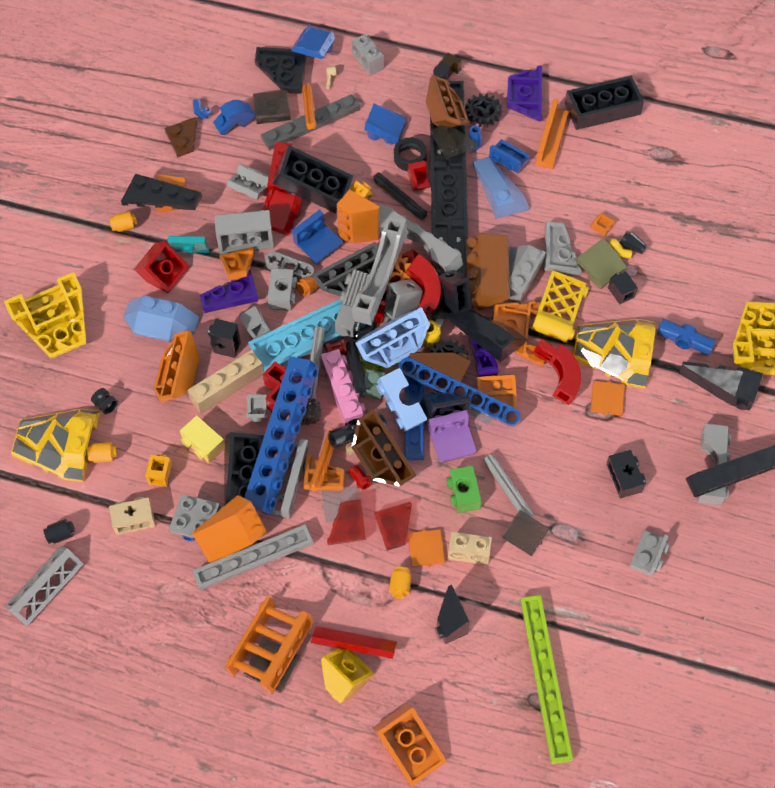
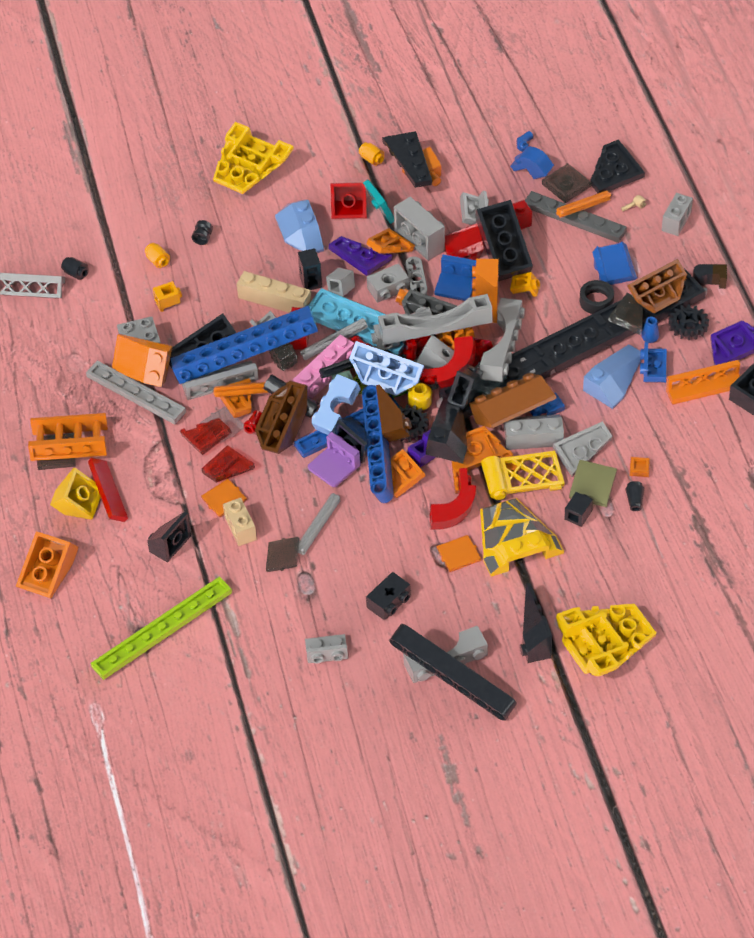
camera: 60 degrees right, 10 degrees down
(57, 442) = (146, 223): wedge -> none
(123, 521) = (117, 302): tan brick -> none
(177, 367) = (263, 259): orange wedge -> none
(182, 136) = (487, 145): reddish brown wing -> none
(202, 439) = (213, 304): light yellow brick -> none
(314, 42) = (654, 172): blue slope -> none
(400, 196) = (548, 312): black axle -> none
(400, 582) = (178, 493): light orange brick -> none
(418, 176) = (576, 311): red panel -> none
(464, 478) = (292, 493): bright green brick -> none
(623, 253) = (619, 486): yellow arm -> none
(685, 336) = (564, 578): blue piece -> none

